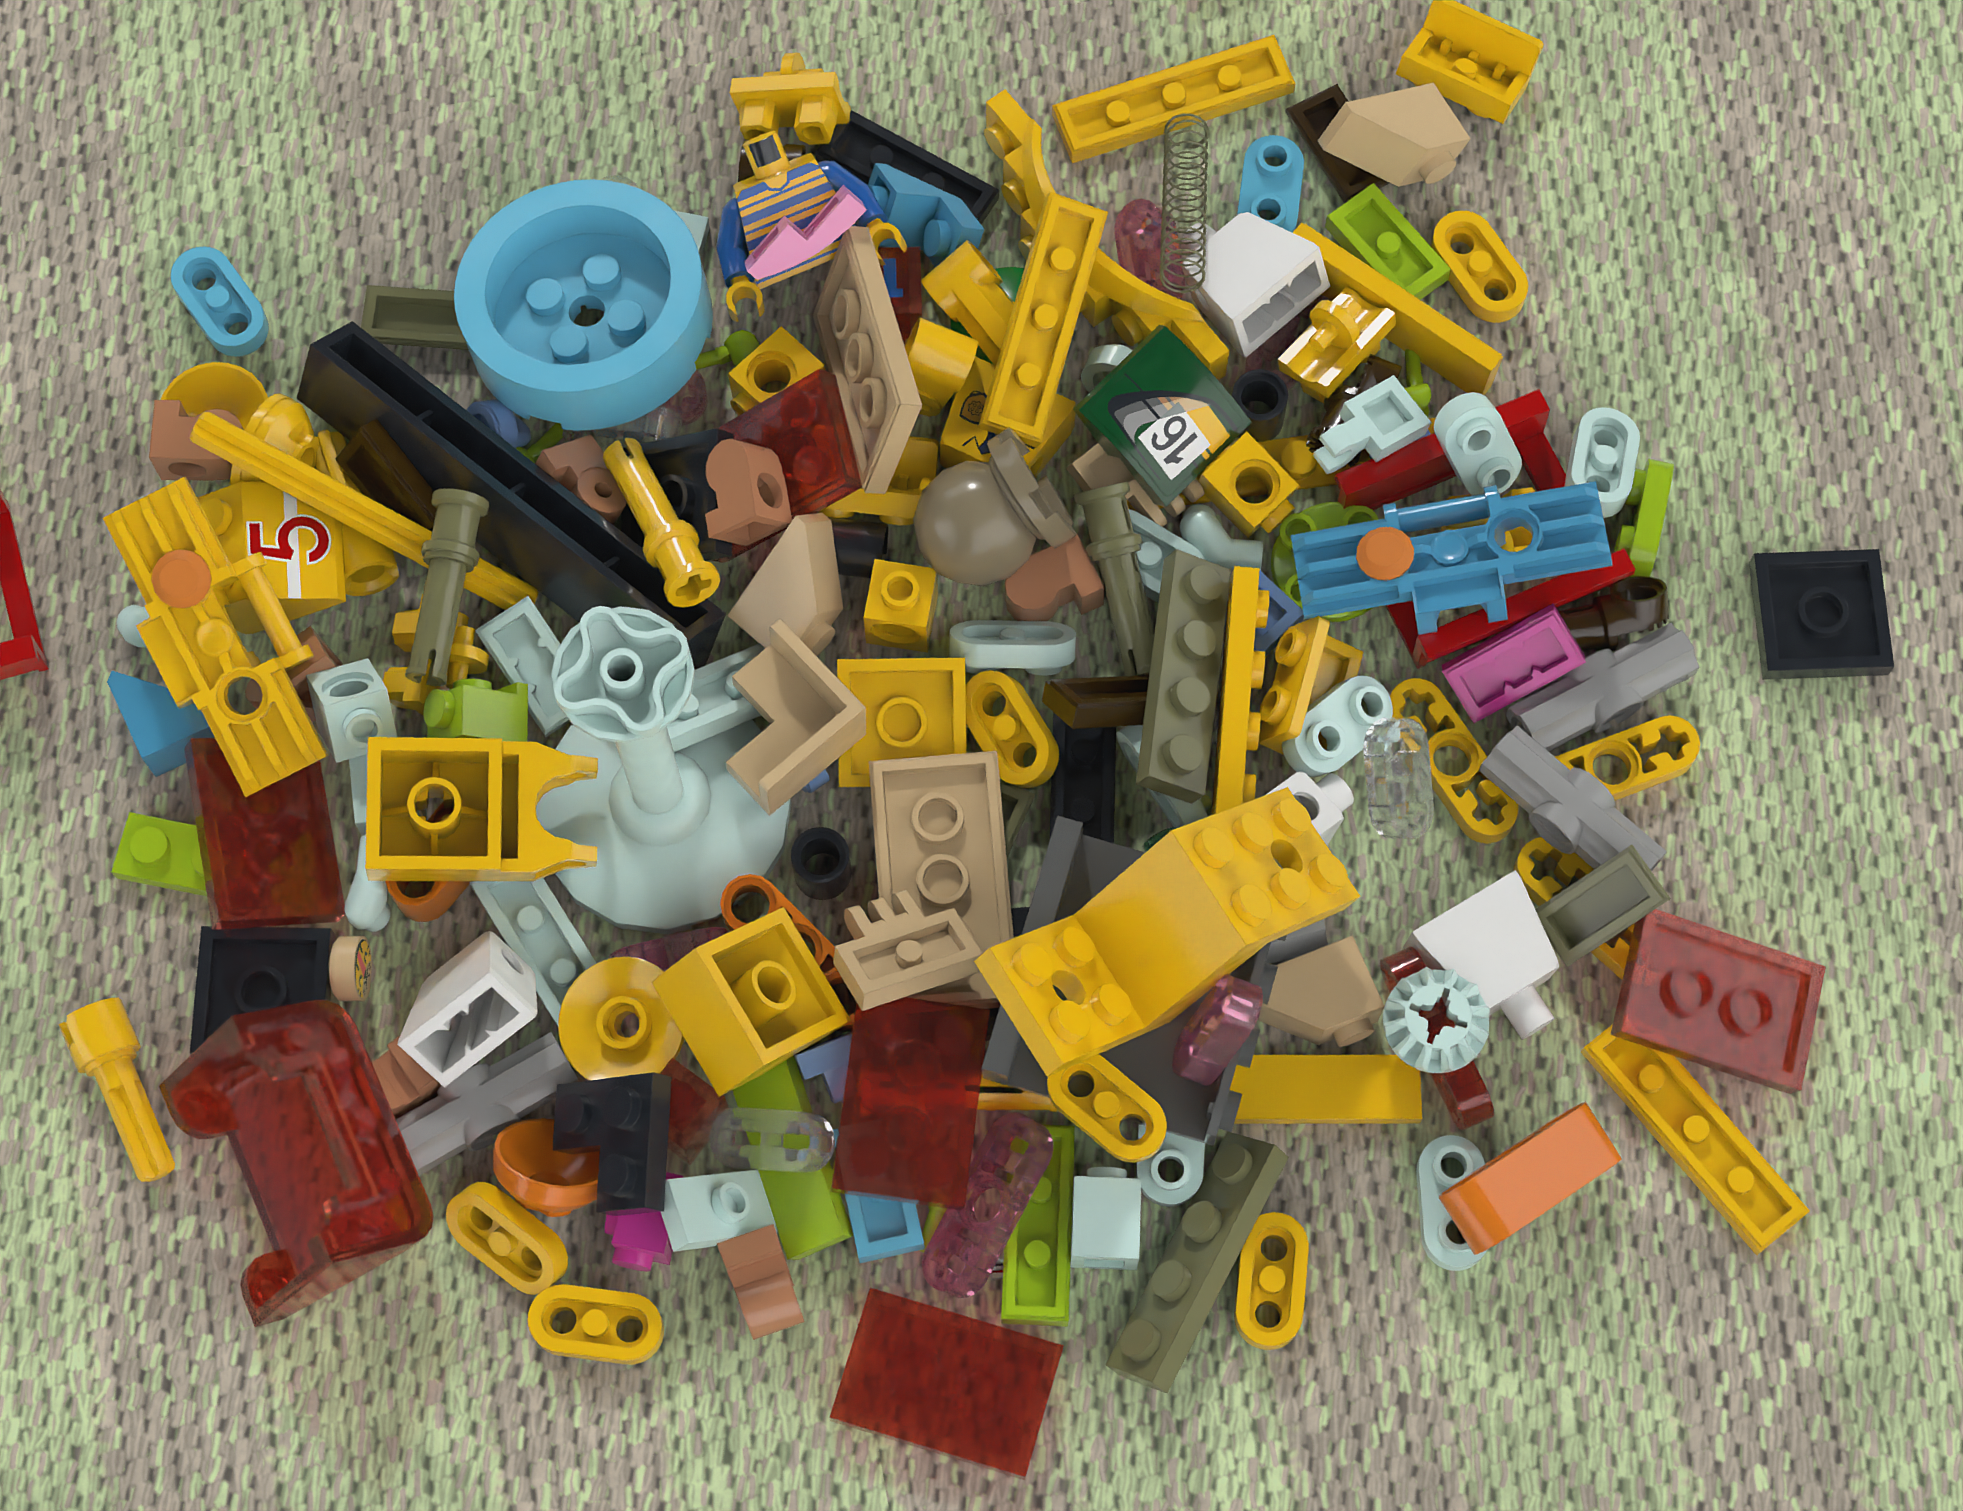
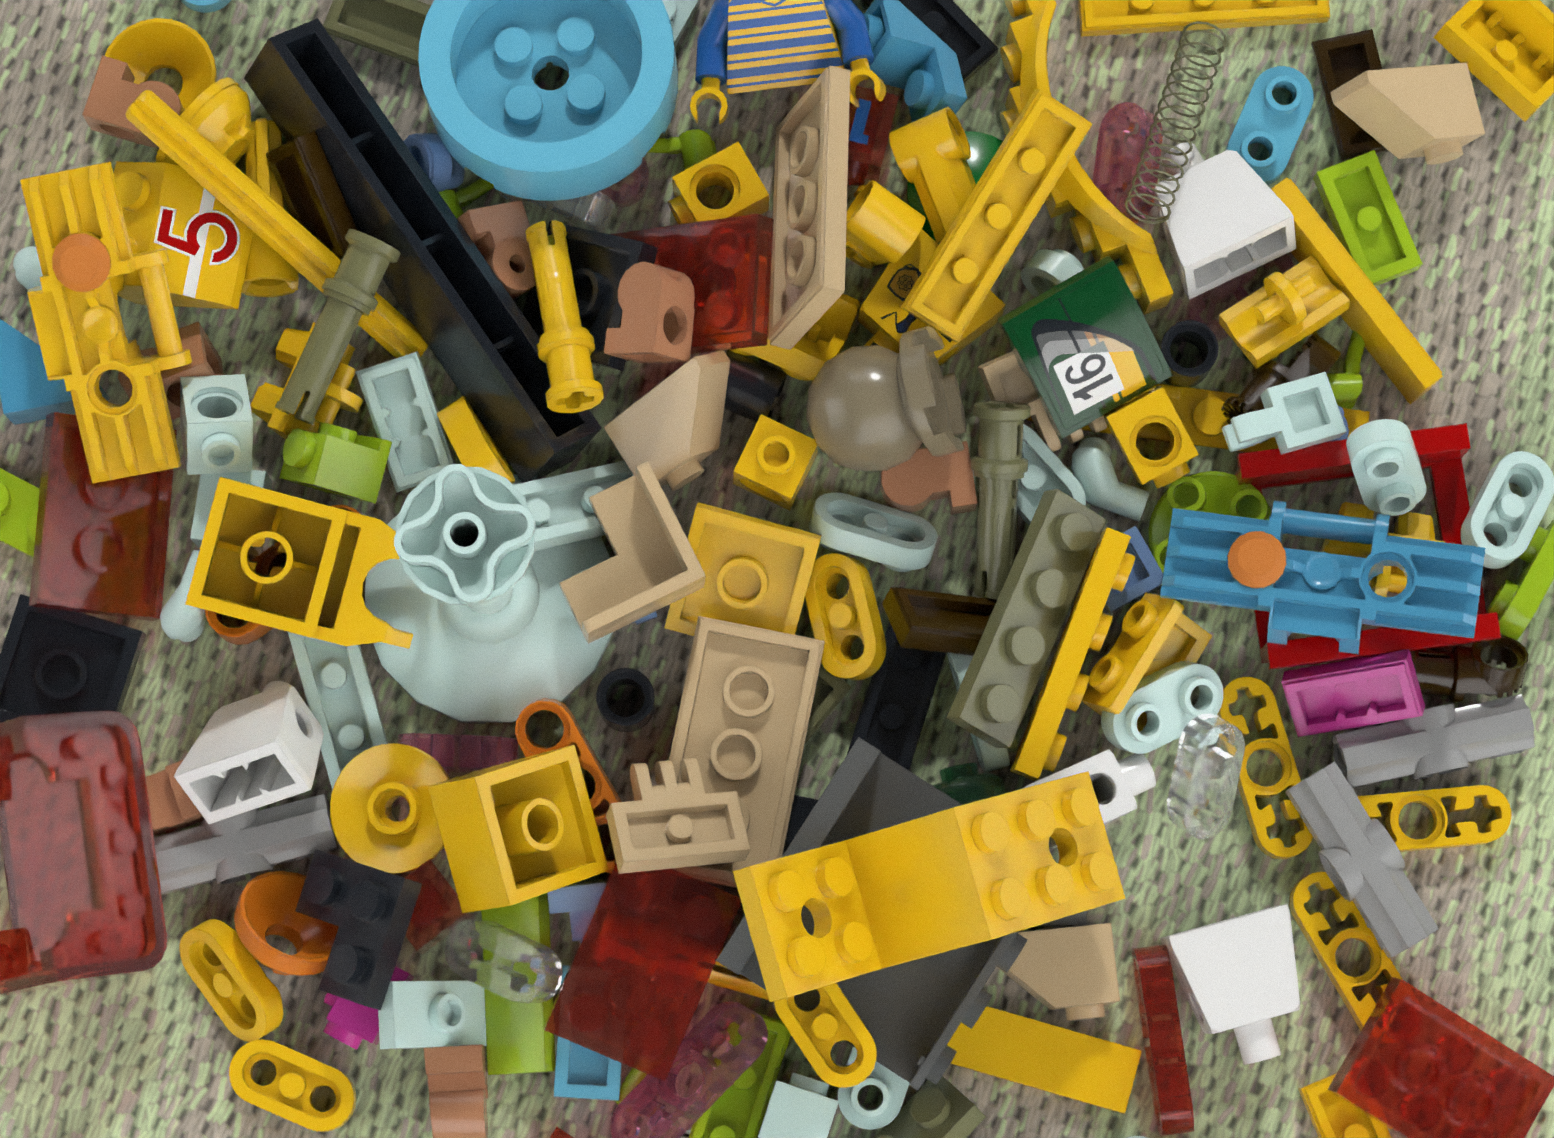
camera: 10 degrees right, 10 degrees up
(350, 968) = (151, 675): tan tile -> none
(789, 245) = (770, 67): bright pink slope -> none
(1217, 1029) = (949, 990): clear pink beam -> none
(1408, 1031) = (1133, 1035): light aqua gear -> none
(1483, 268) = (1458, 267): yellow plate -> none
(1601, 905) = (1357, 964): olive tile -> none

